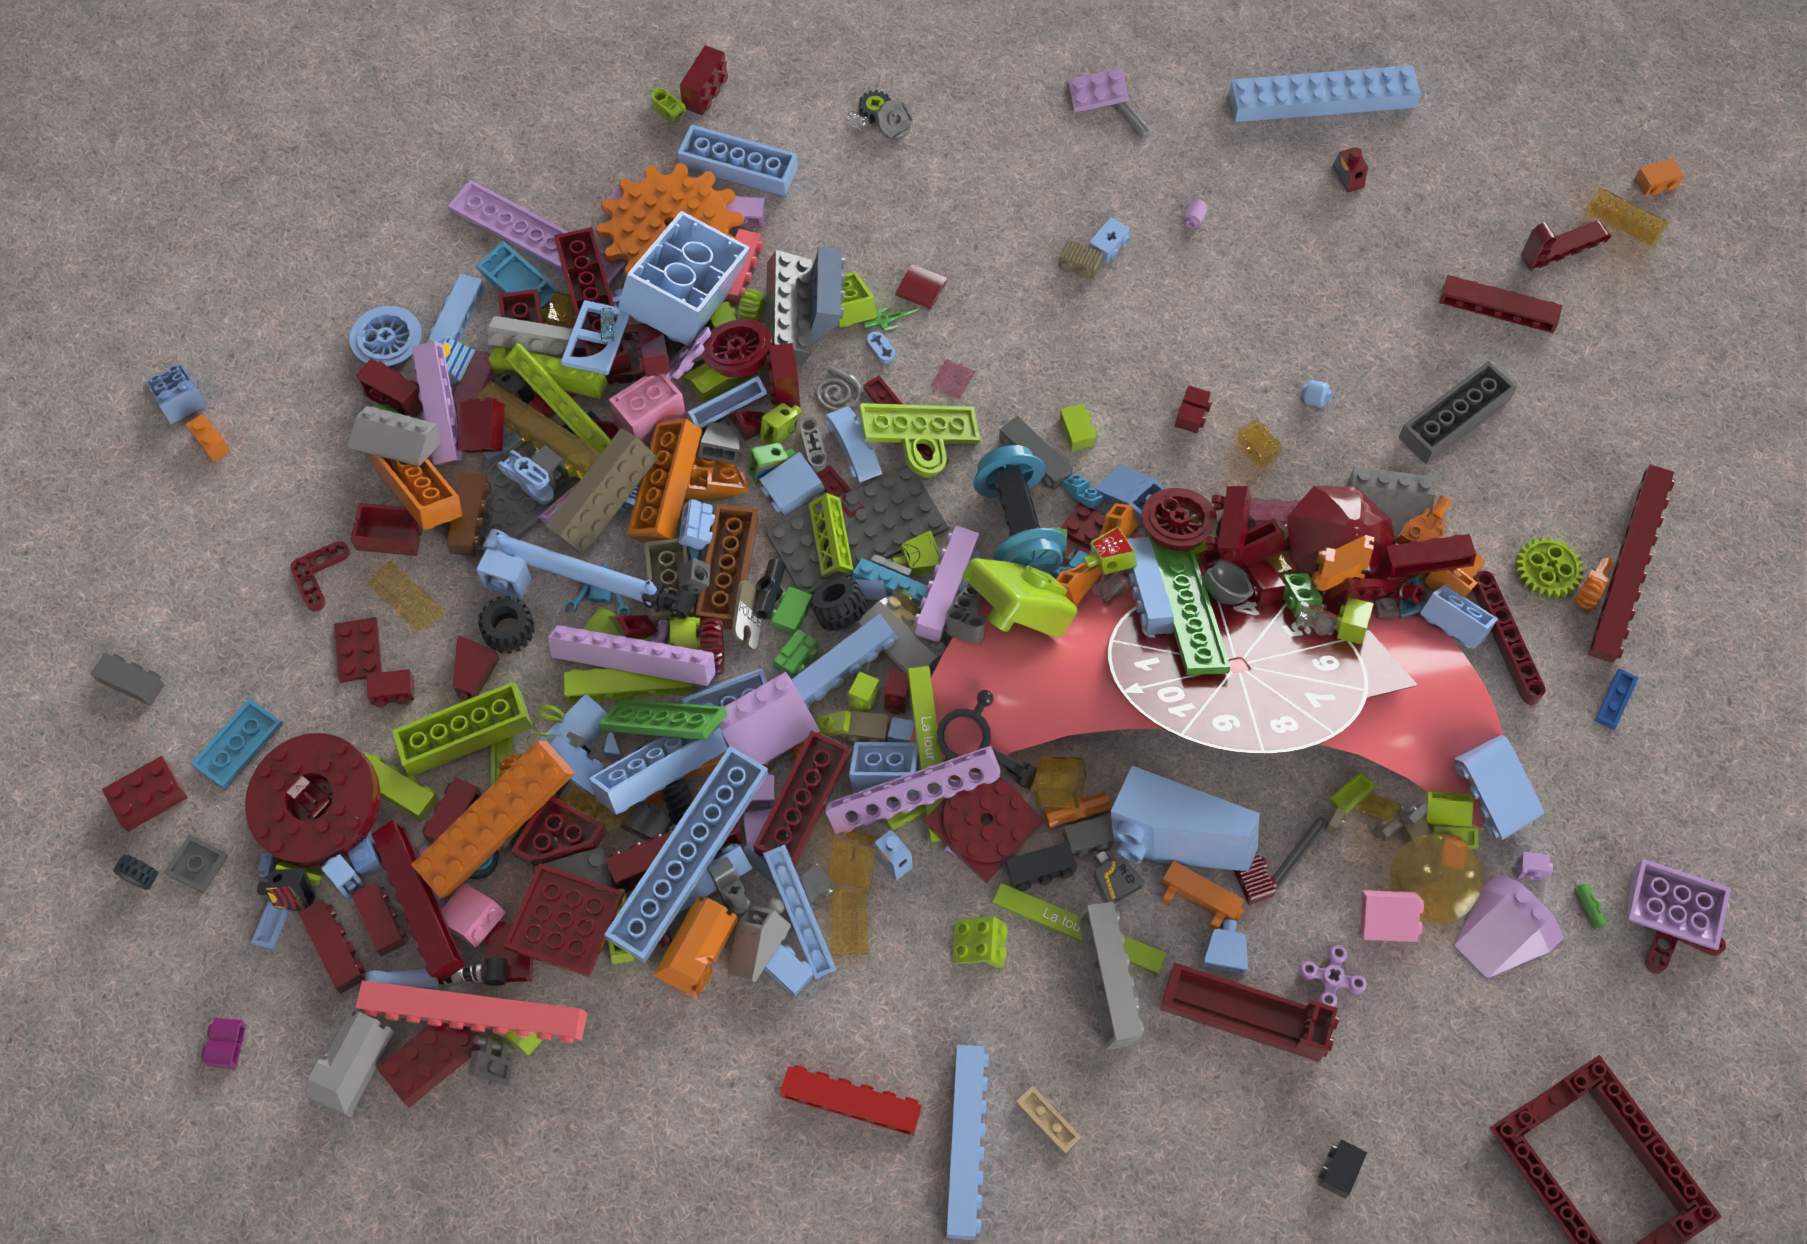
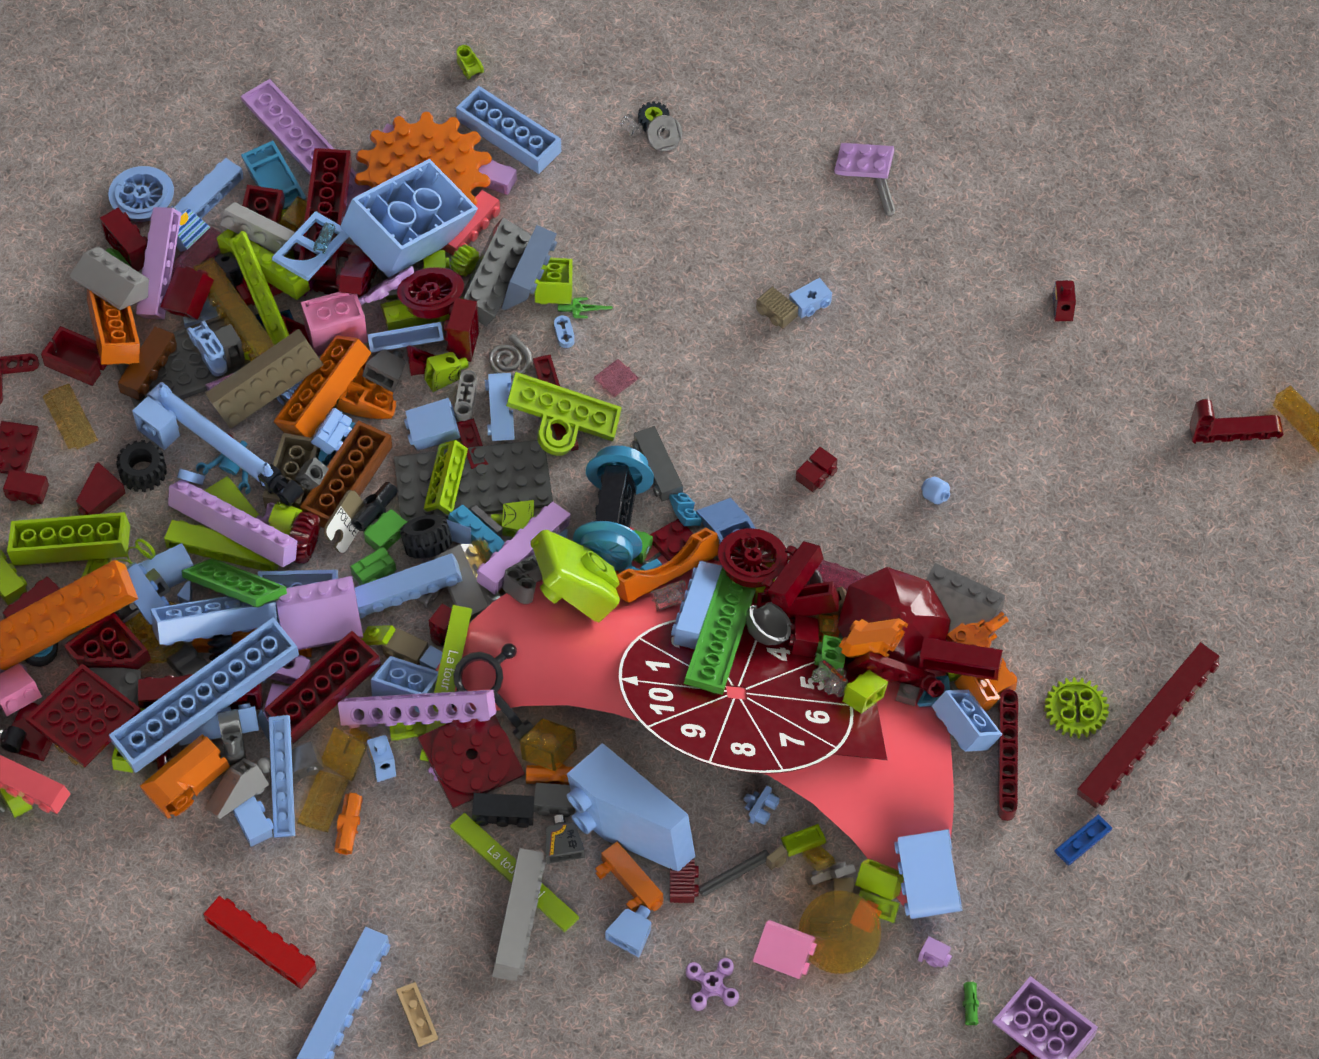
camera: 20 degrees right, 5 degrees down
(564, 619) = (191, 476): none -> light blue beam
(634, 626) = (247, 501): dark red slope -> none
(704, 80) = (508, 49): dark red brick -> none
(765, 459) = (418, 395): bright green torso -> none
(863, 693) = (414, 617): lime brick -> none
(887, 937) = (348, 823): none -> orange piece
(921, 286) = (623, 288): dark red slope -> none
(980, 941) = (425, 852): lime bracket -> none
(1077, 427) = (705, 453): lime brick -> none
(1111, 553) = (676, 566): torso -> none
(1195, 213) = (901, 298): lavender brick -> none
(1251, 1012) = (626, 987): dark red brick -> none
(1259, 443) = (863, 517): clear yellow brick -> none
(1297, 763) = (766, 798): none -> light blue hips
(1324, 93) = (1073, 224): light blue brick -> none
(1457, 412) = (1056, 545): dark grey brick -> none
(1500, 304) = (1146, 463): dark red brick -> none
(1506, 928) = (886, 997): lavender wedge -> none
(1594, 586) = (1106, 736): orange gear -> none

